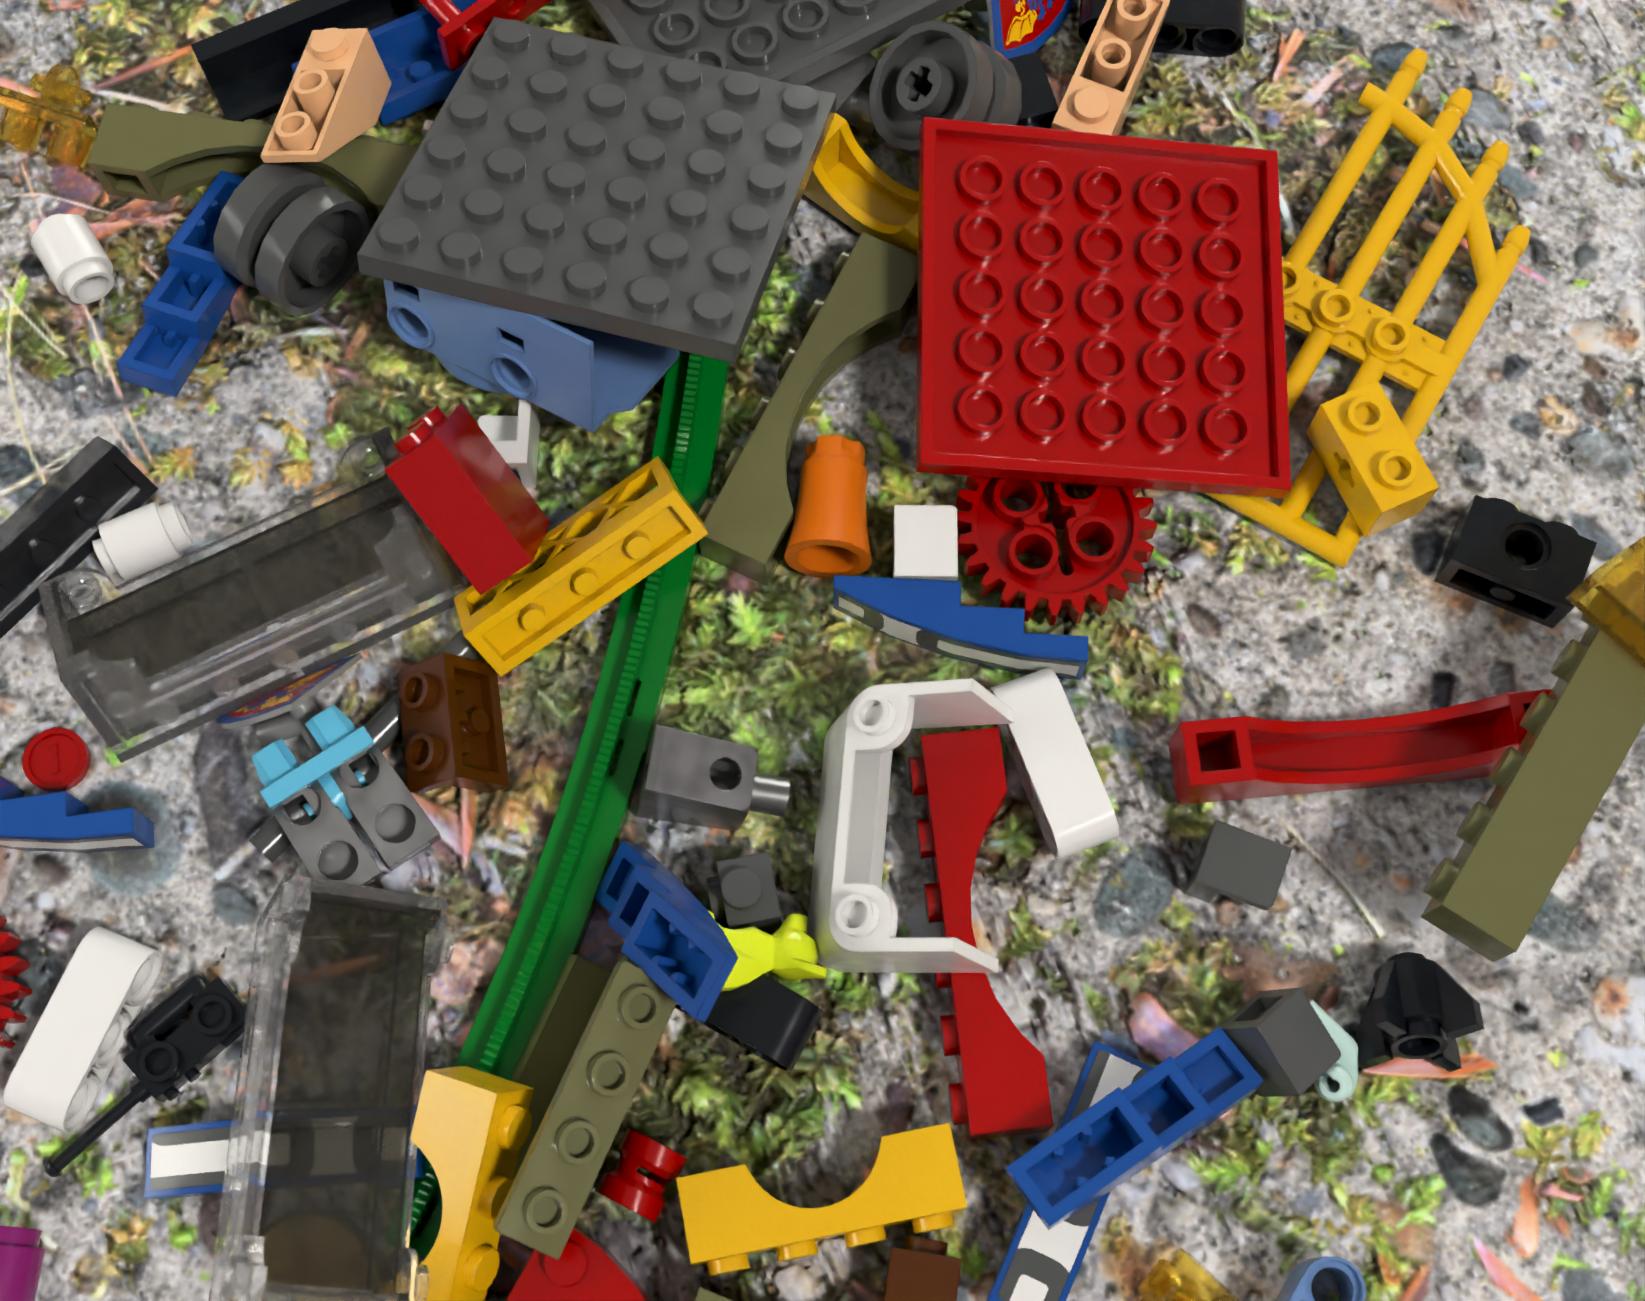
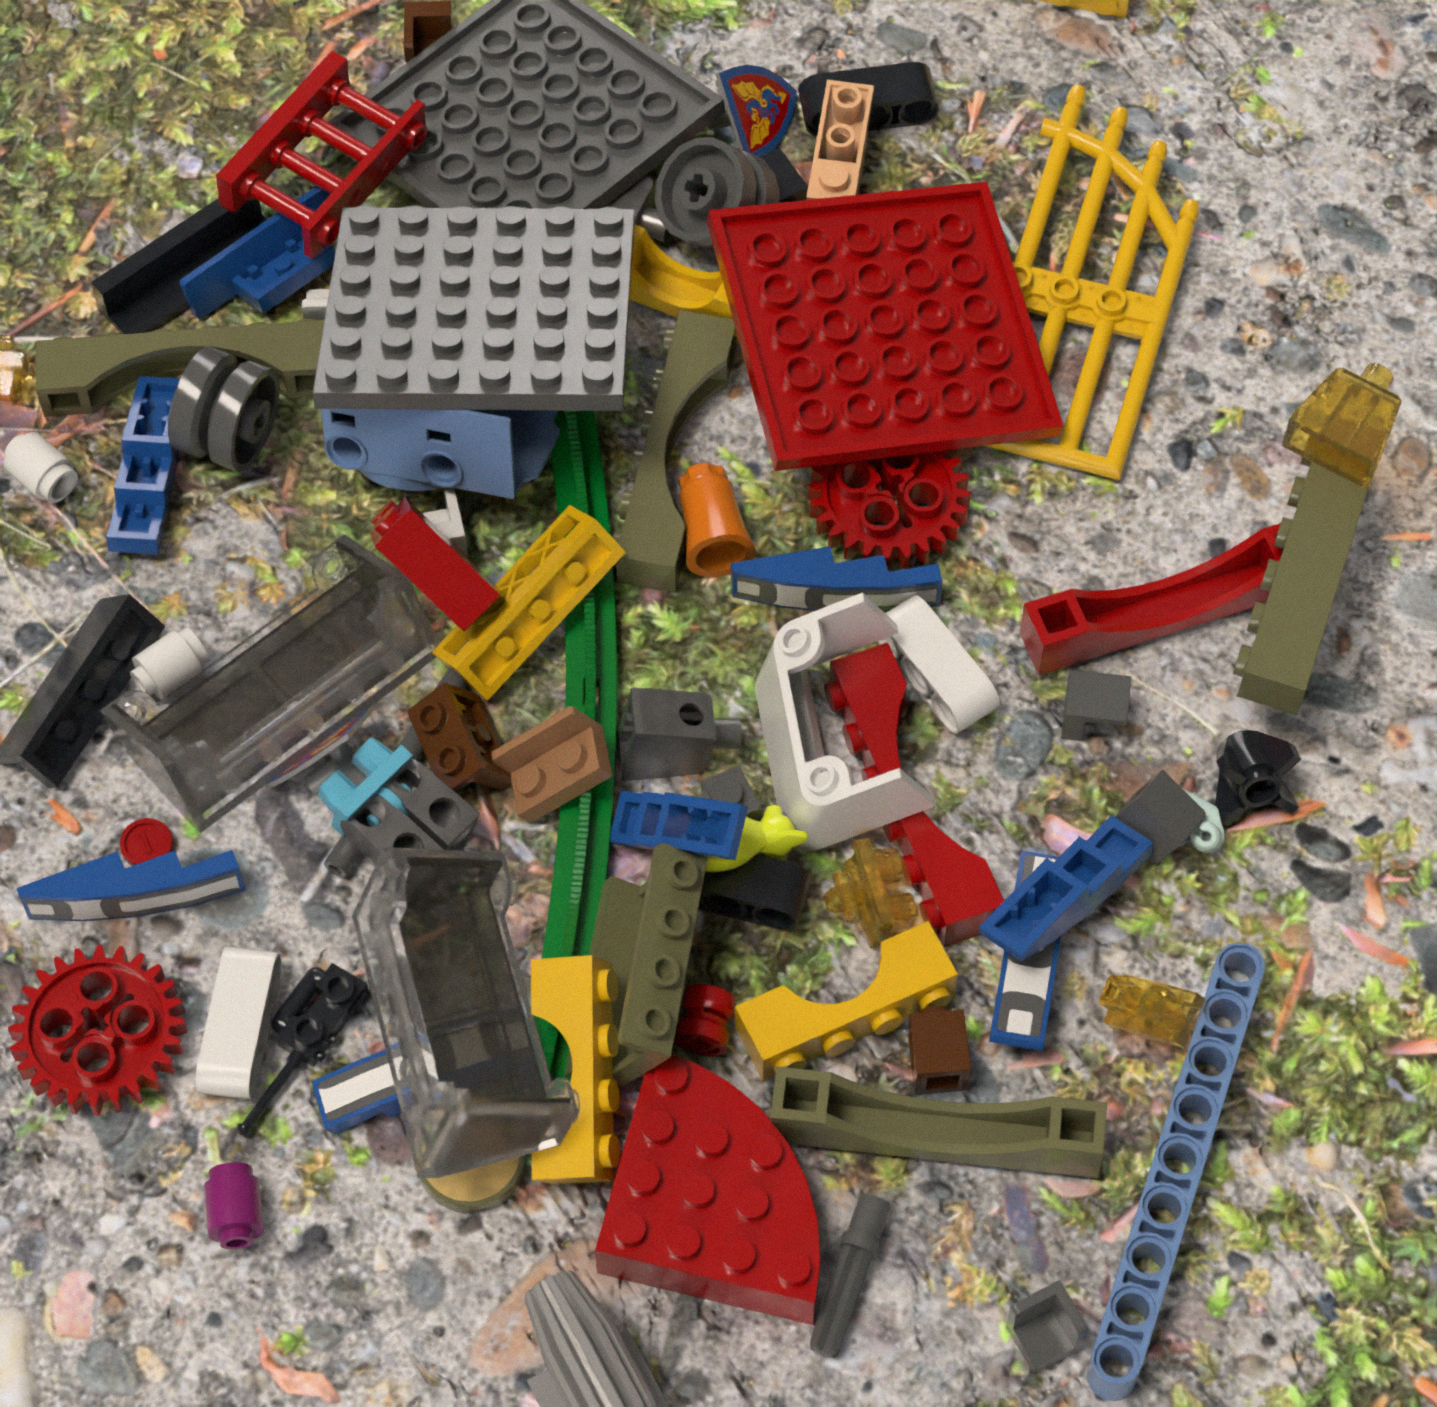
camera: 15 degrees left, 10 degrees down
(330, 97) = (227, 293): light nougat slope -> none
(551, 787) = (554, 762): none -> medium nougat bracket
(894, 1024) = (862, 893): none -> clear yellow hips
(925, 542) = (792, 525): white panel -> none
(1371, 458) = (1118, 390): yellow brick -> none
(1481, 568) = (1224, 454): black brick -> none

